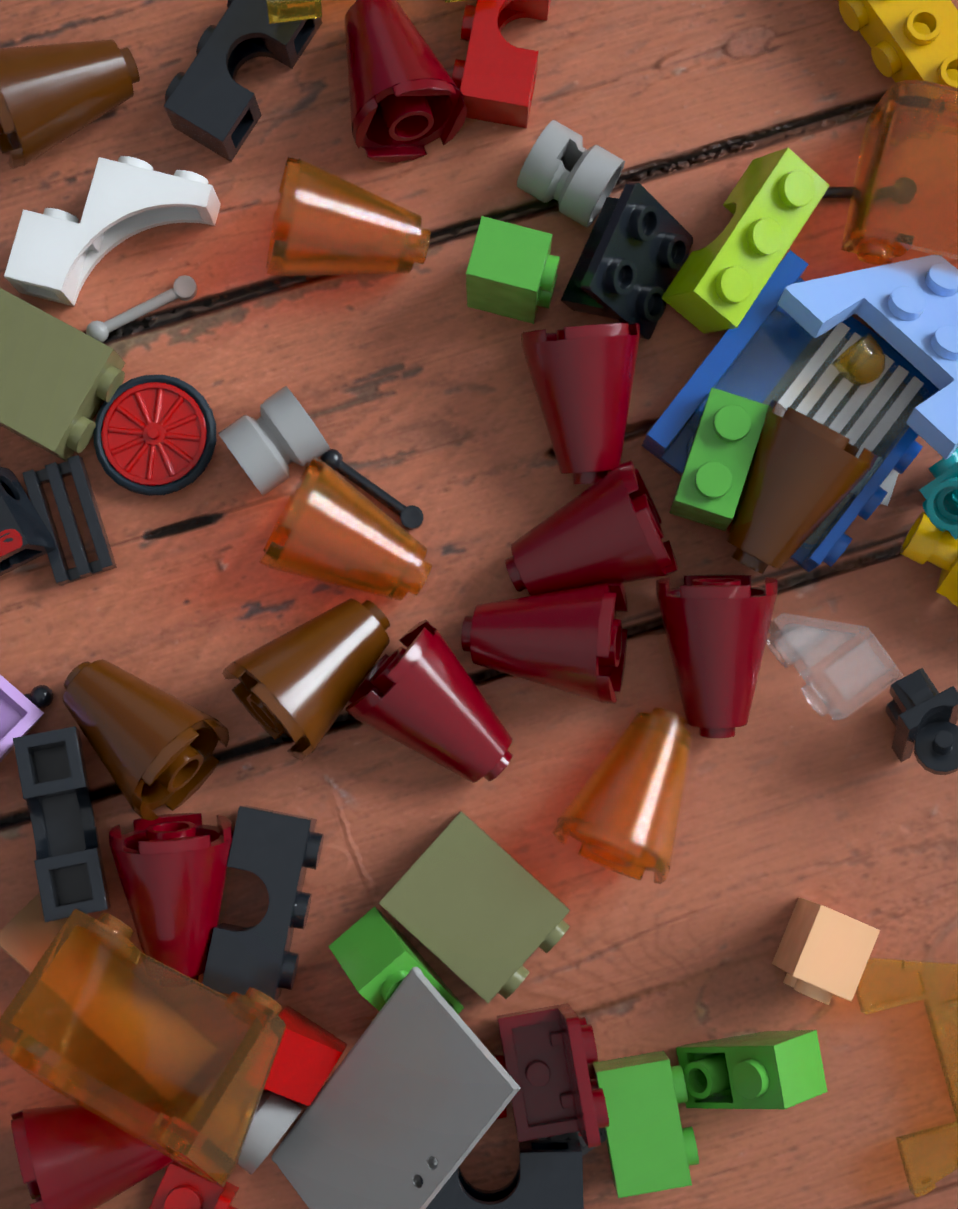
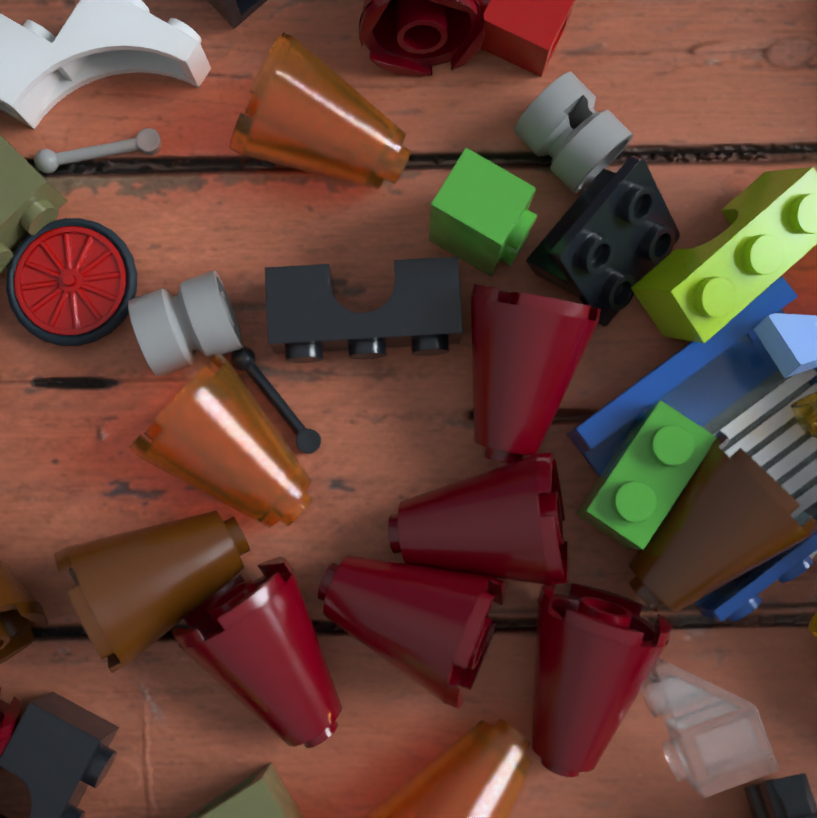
camera: 15 degrees right, 0 degrees up
(480, 375) = (309, 320): none -> black arch

